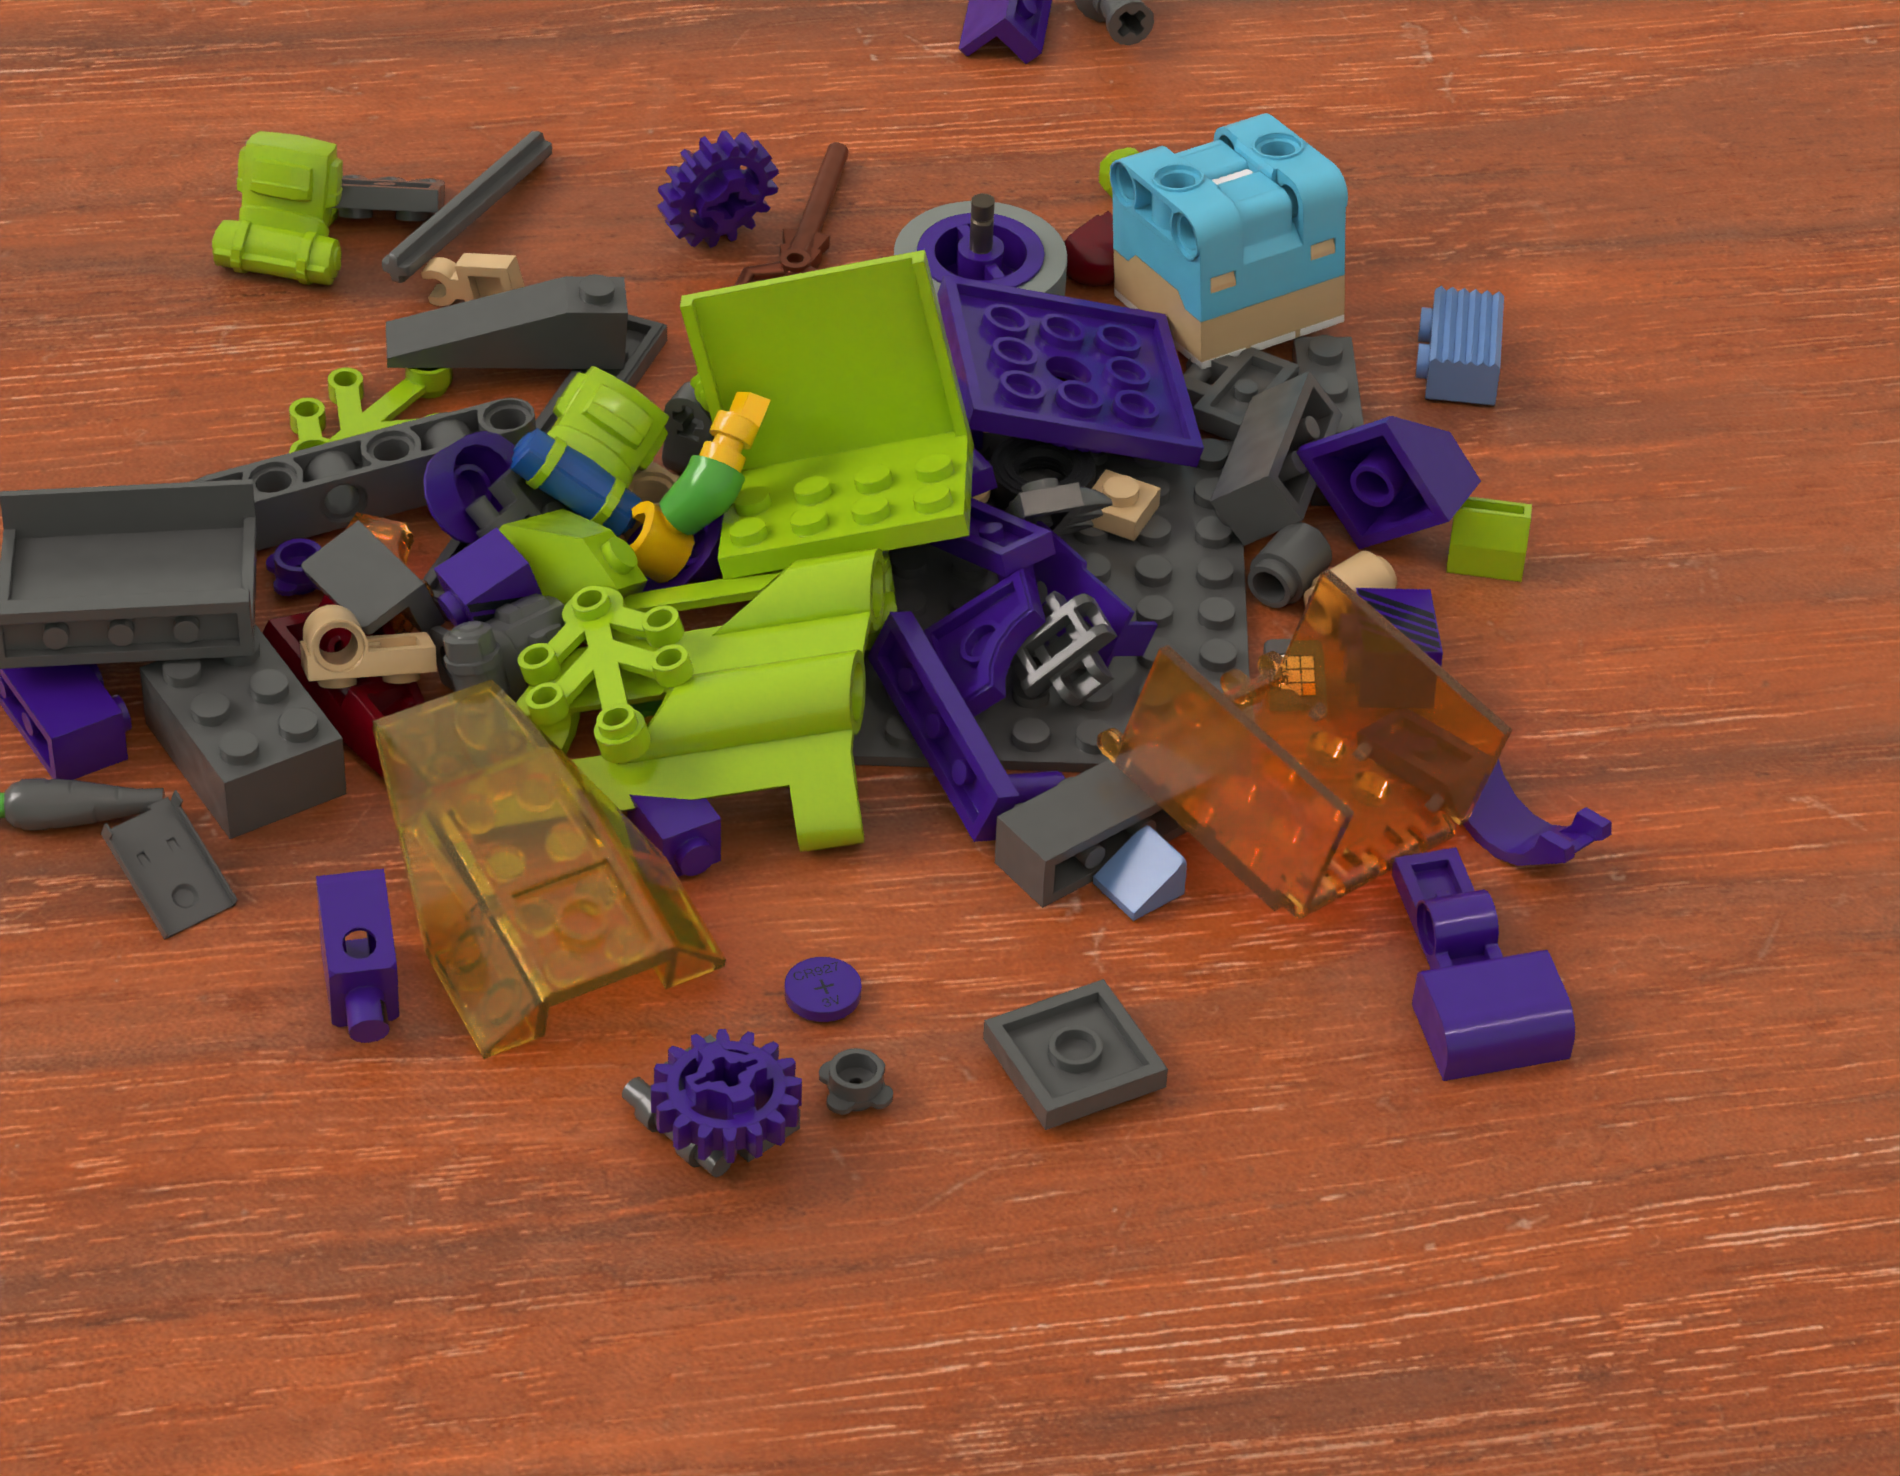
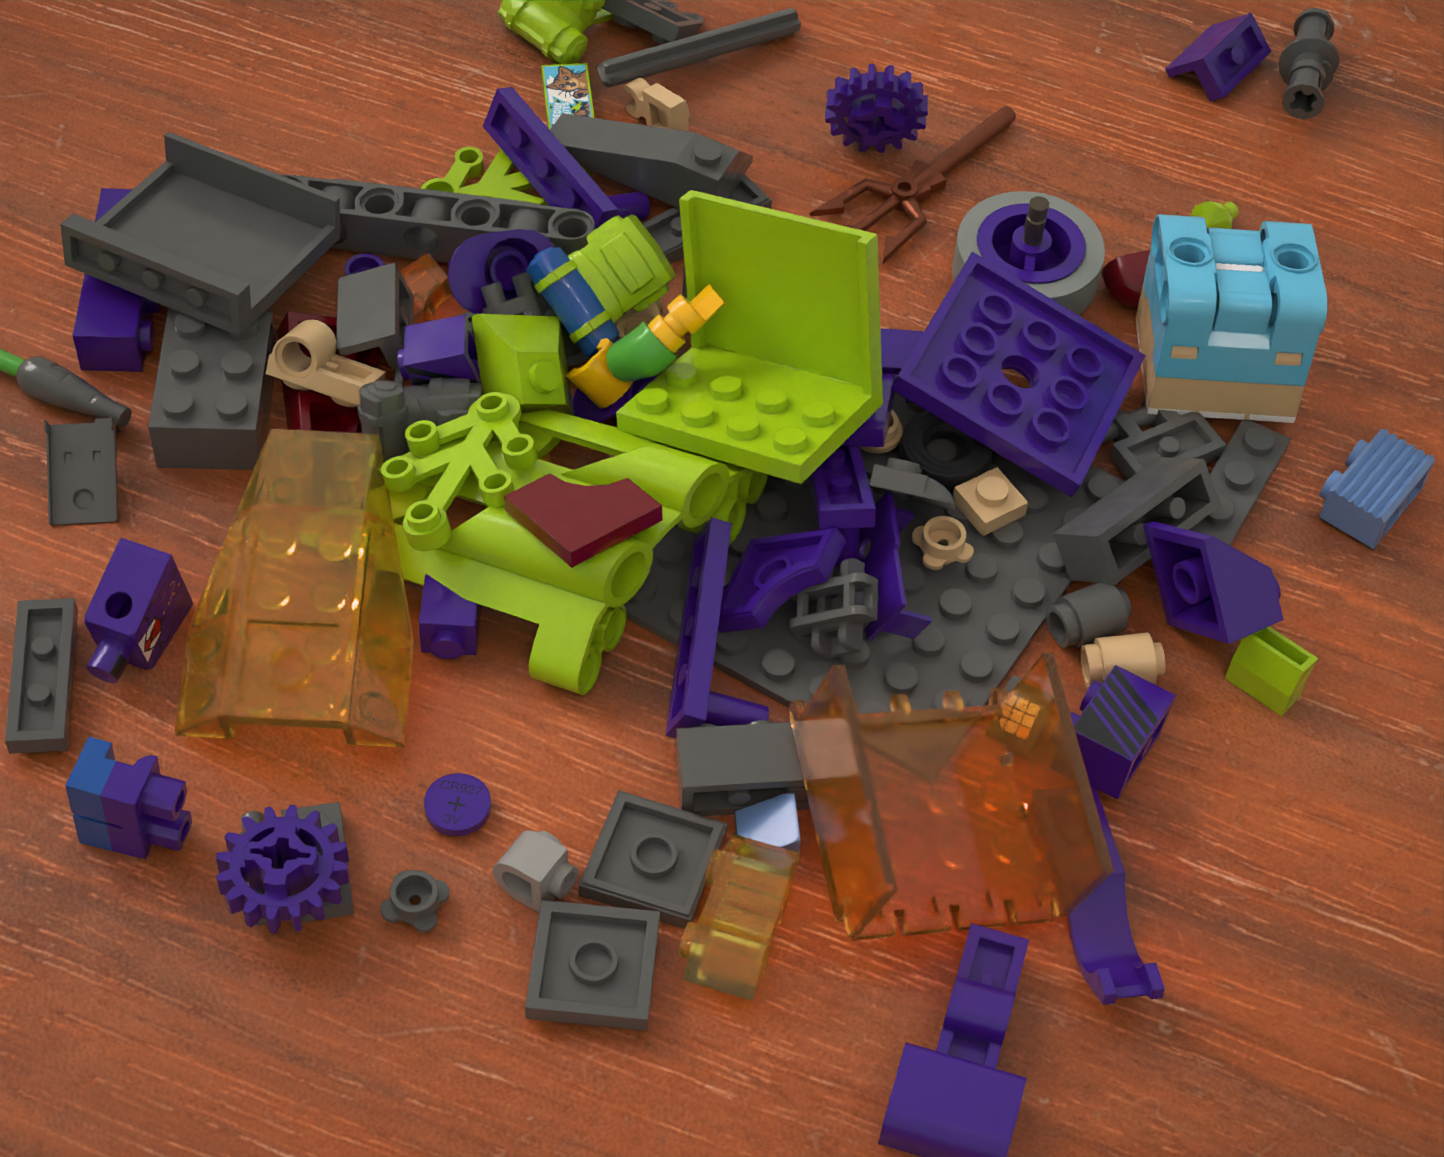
camera: 30 degrees right, 10 degrees up
(300, 1064) = (42, 676): none -> dark grey plate
(356, 312) = (566, 91): none -> tile
(408, 371) = (550, 165): none -> dark purple piece
(513, 1118) = (126, 804): none -> dark purple hips
(784, 653) = (582, 519): none -> dark red tile
(953, 1001) = (535, 869): none -> light grey plate
(1049, 946) = (652, 858): none -> dark grey tile
(1110, 555) = (942, 531): none -> tan plate
(1180, 948) = (740, 916): none -> clear yellow brick

